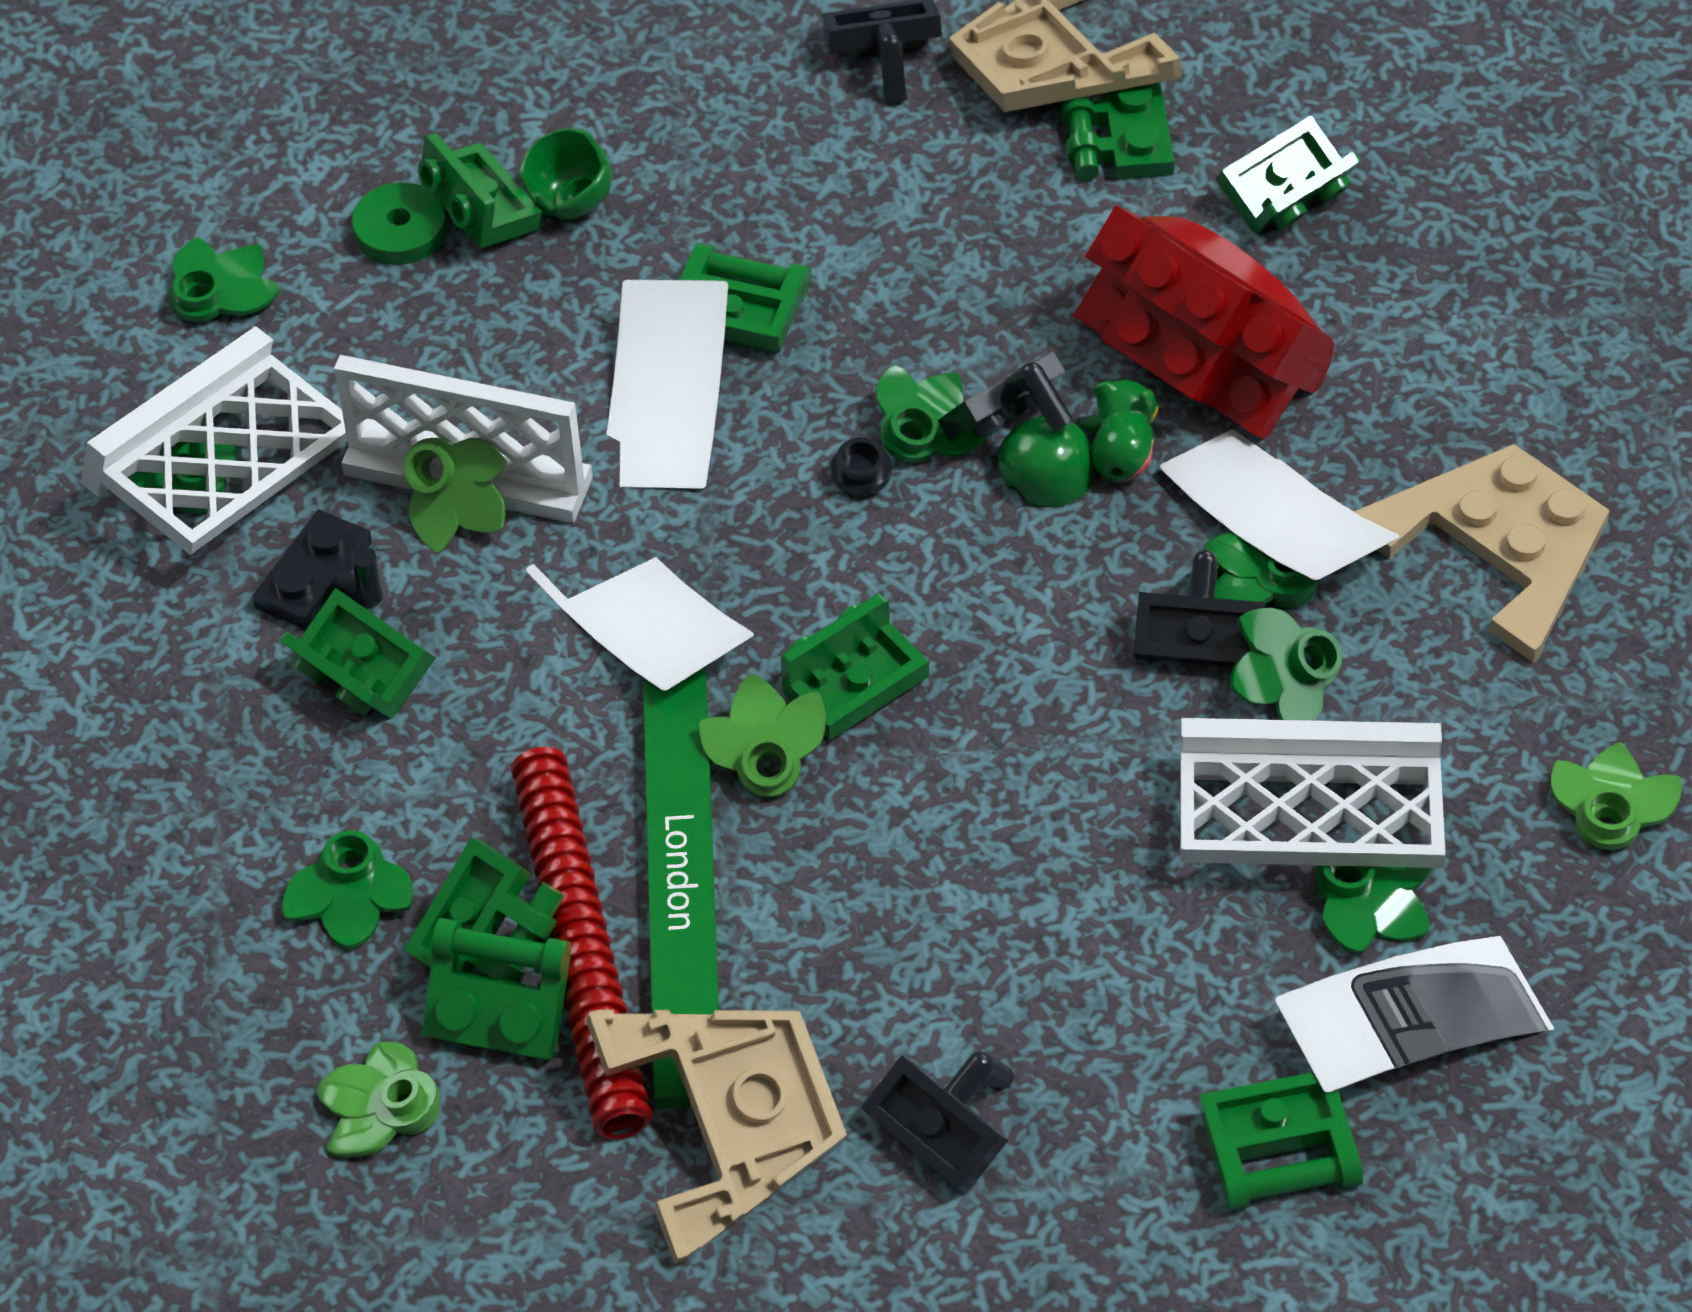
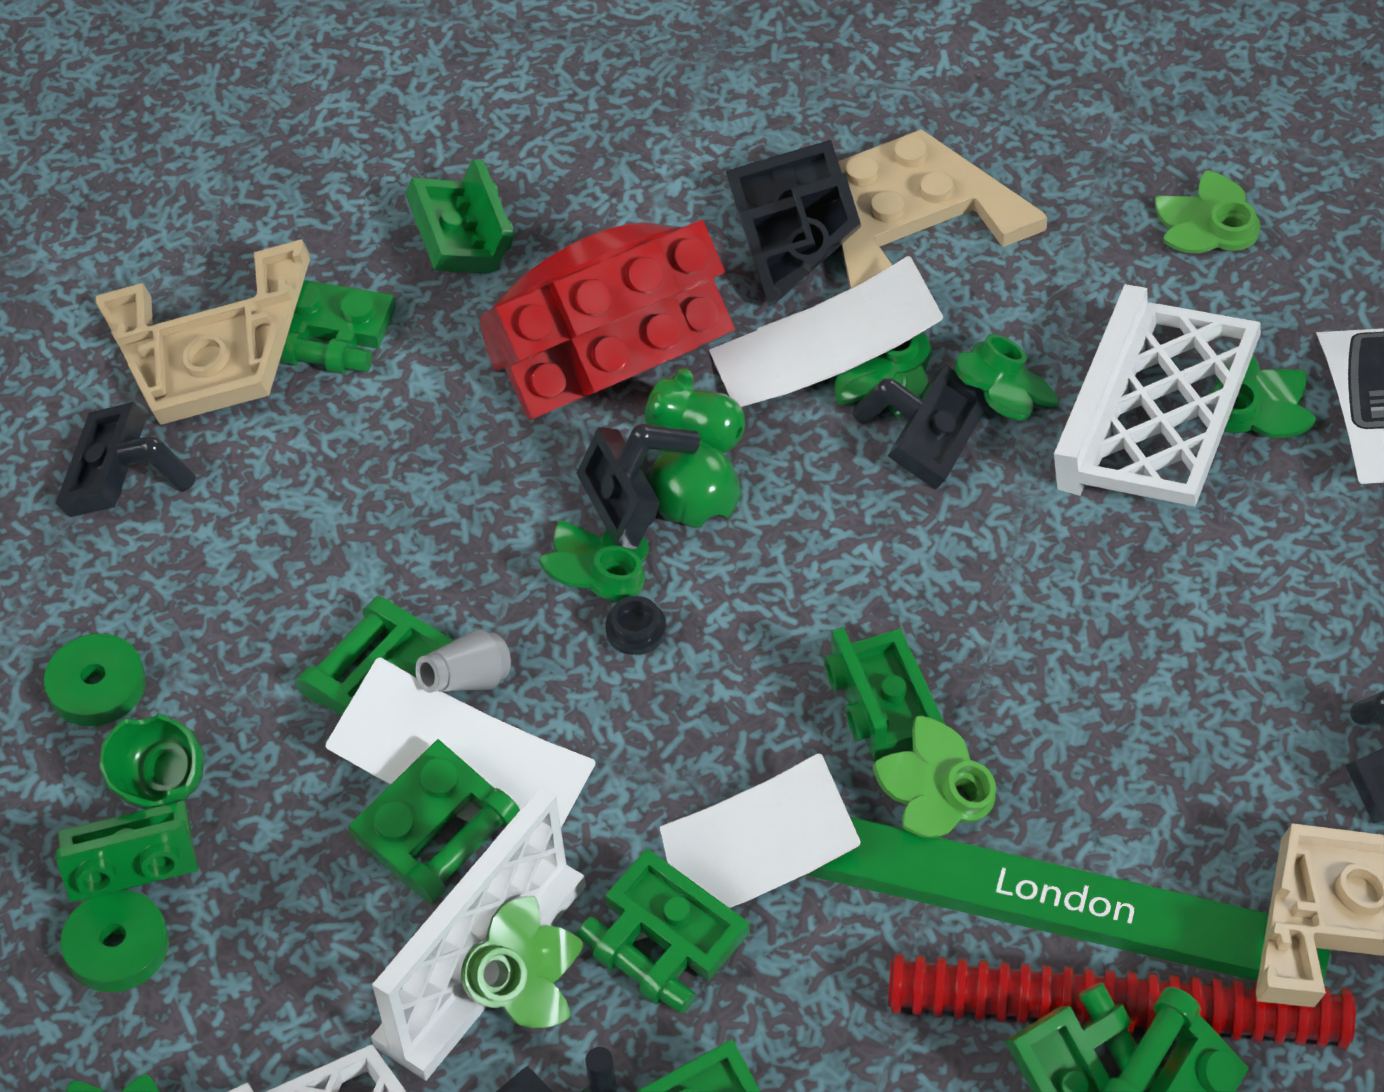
camera: 70 degrees left, 0 degrees up
(547, 590) = (674, 914): none -> green plate
(599, 374) = (419, 807): none -> green plate
(655, 133) = (98, 702): none -> green piece
(753, 349) = (467, 663): none -> light grey cone
(1427, 437) = (793, 214): none -> black slope

